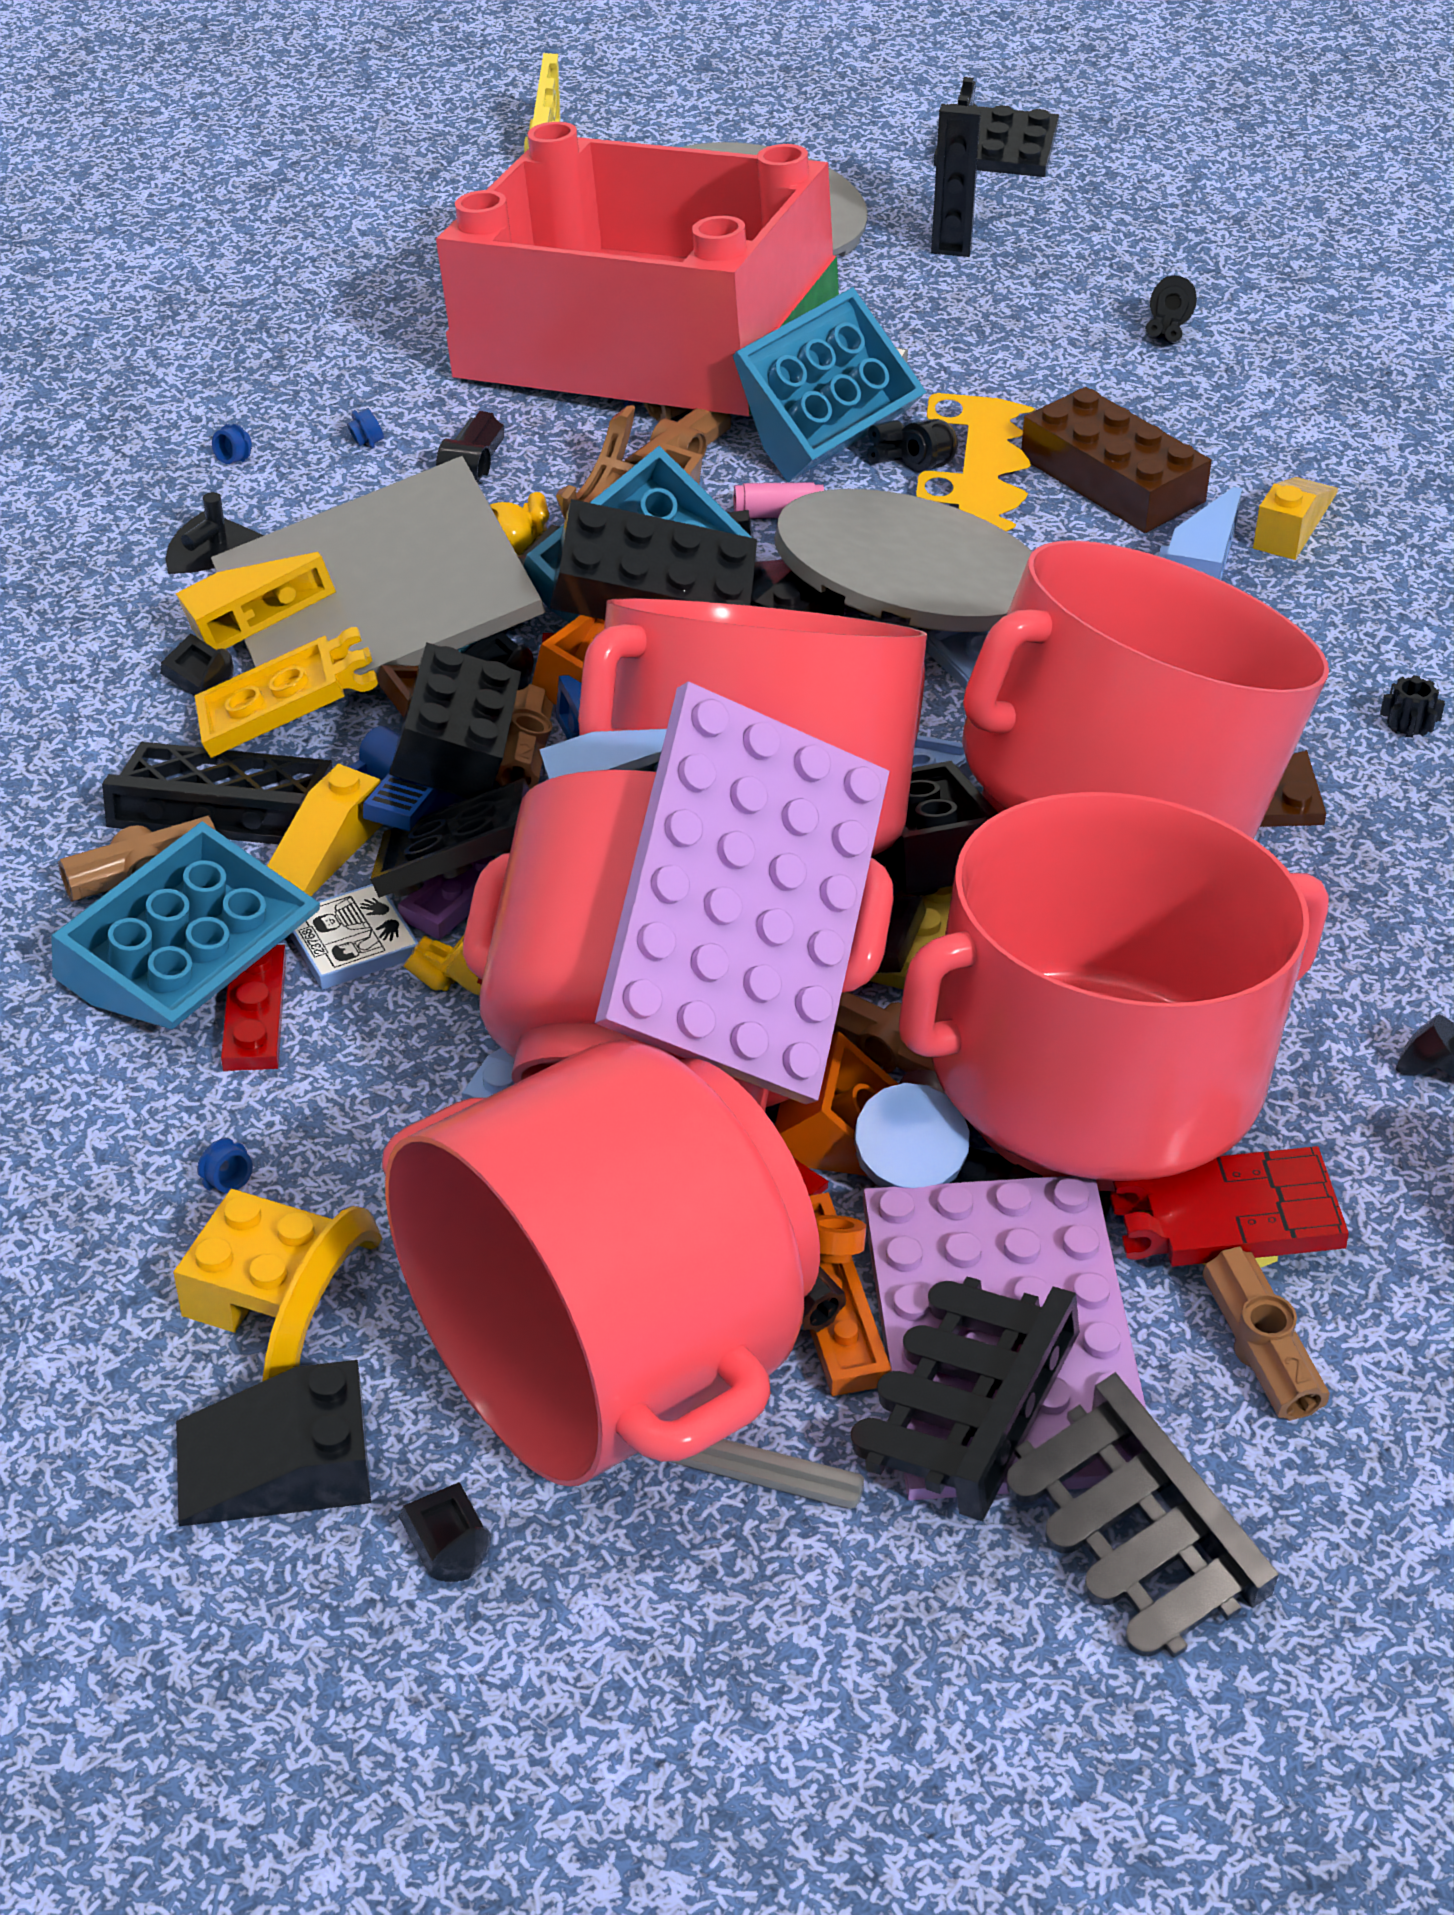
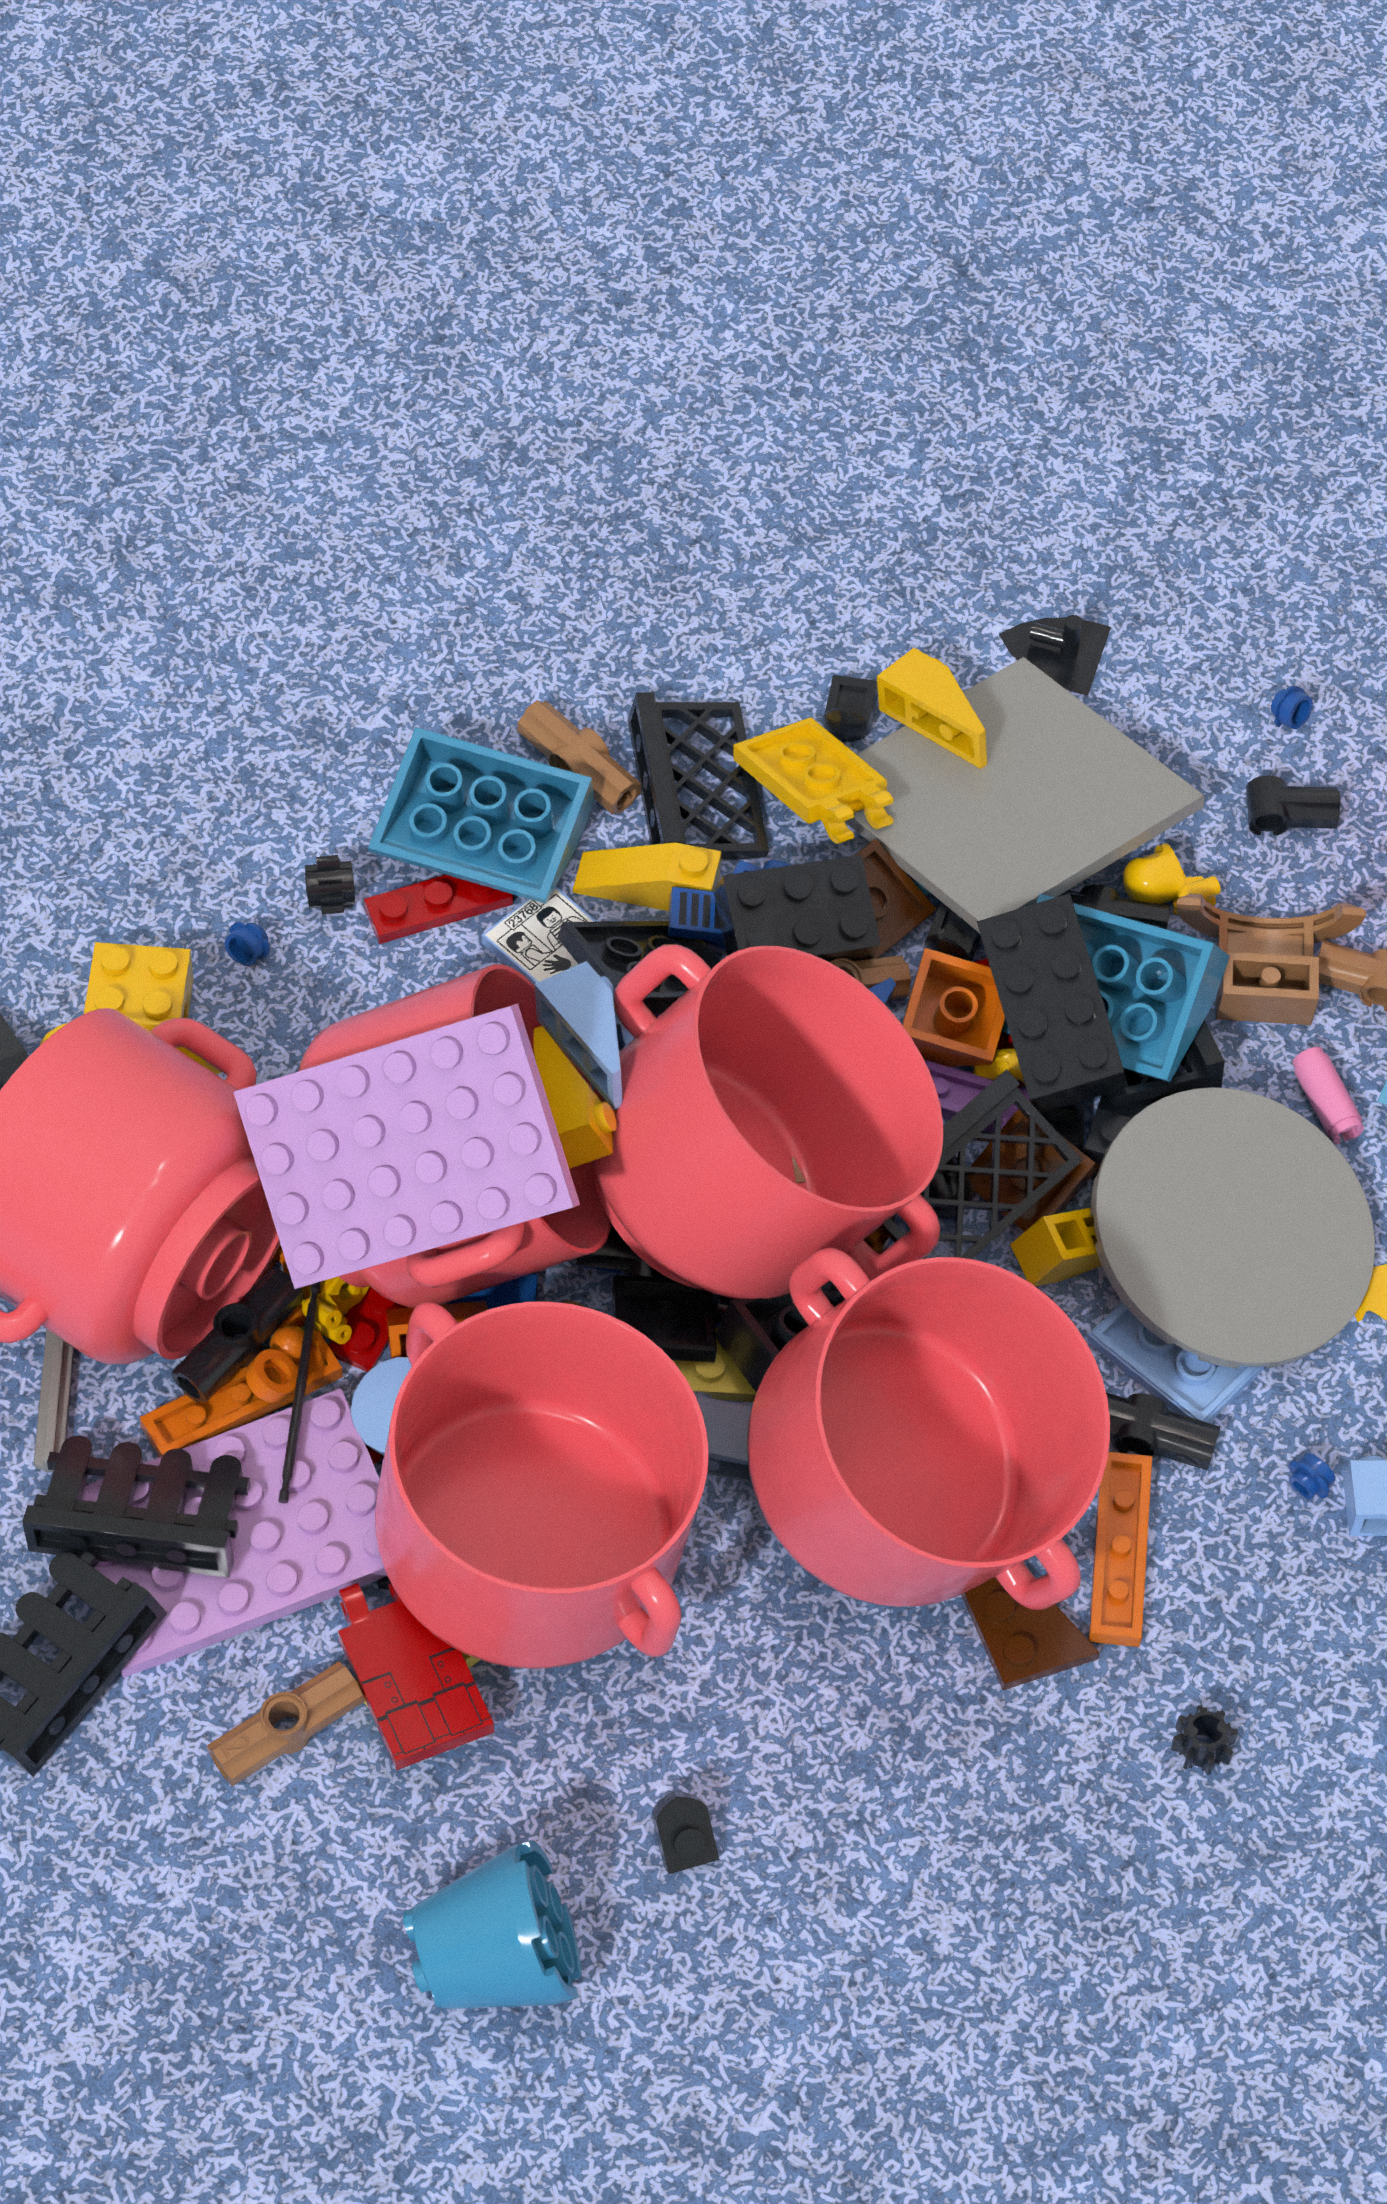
camera: 70 degrees right, 15 degrees up
(191, 1075) = (330, 884): none -> black gear
(231, 444) = (1212, 609): blue plate -> none
(902, 1226) = (299, 1393): none -> black piece

